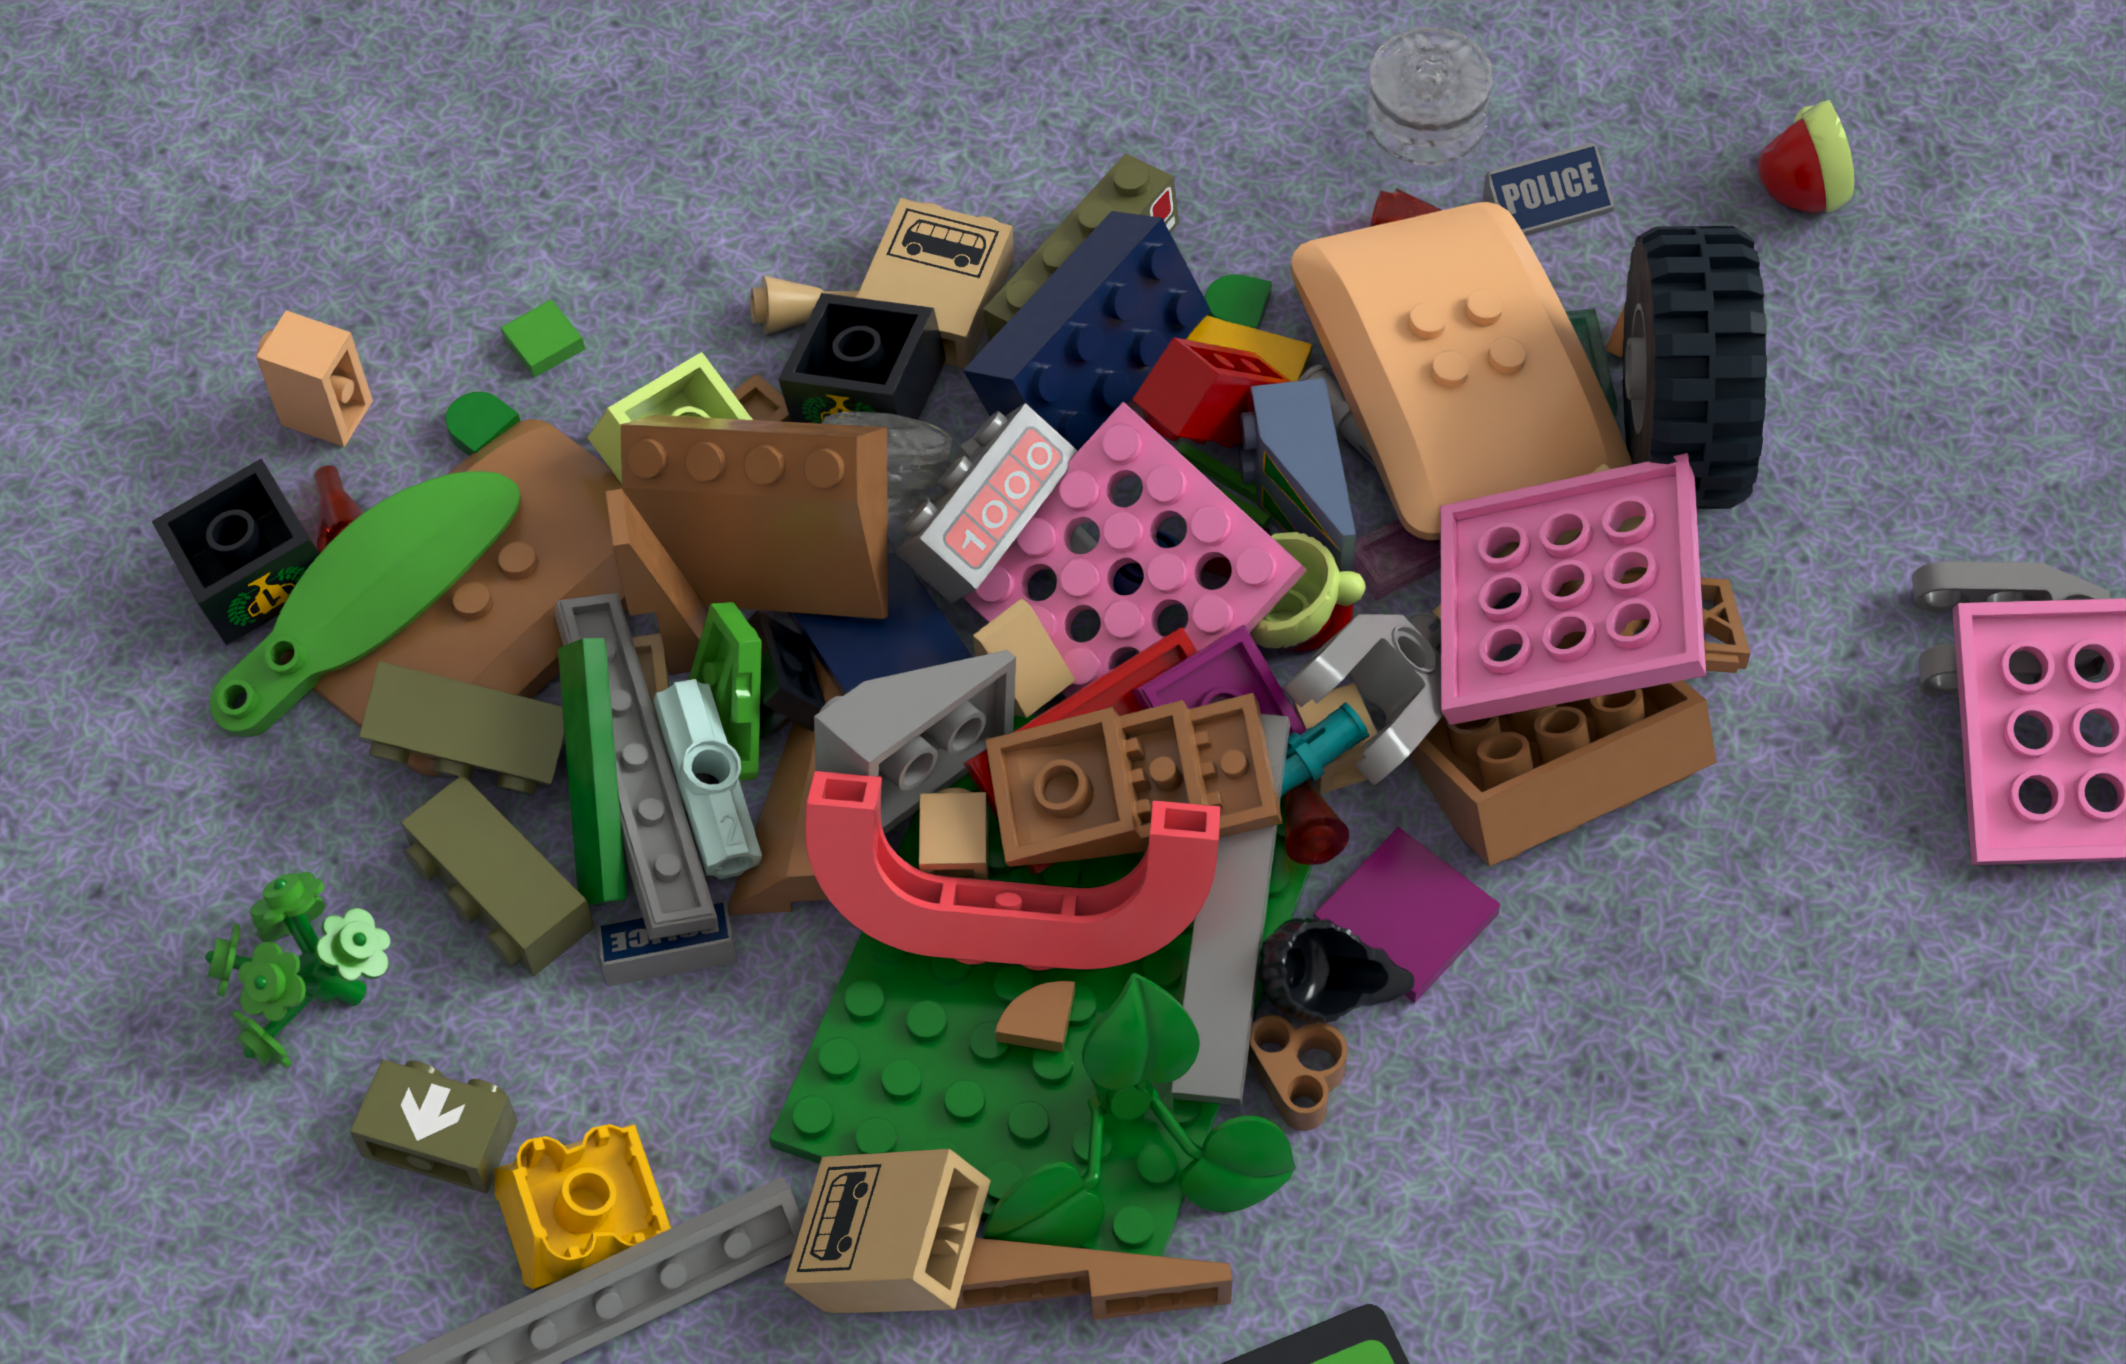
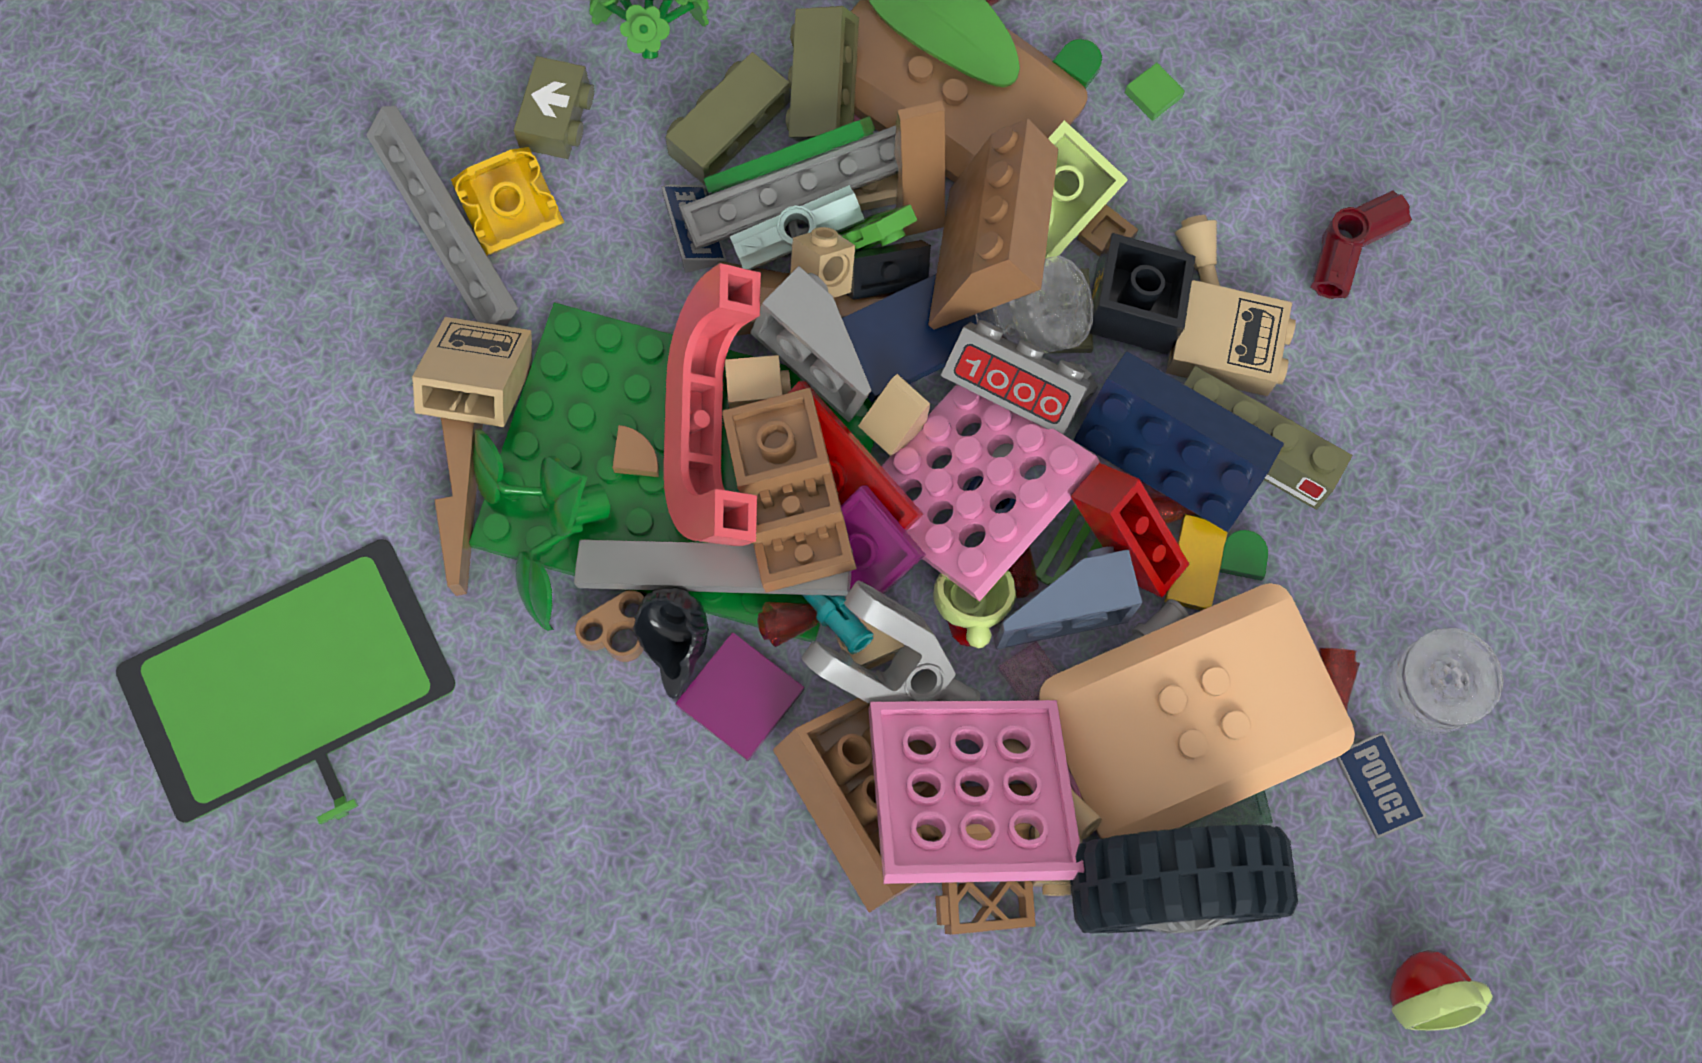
camera: 80 degrees right, 15 degrees up
(774, 735) = (826, 256): none -> tan brick
(804, 141) = (1366, 225): none -> dark red piece

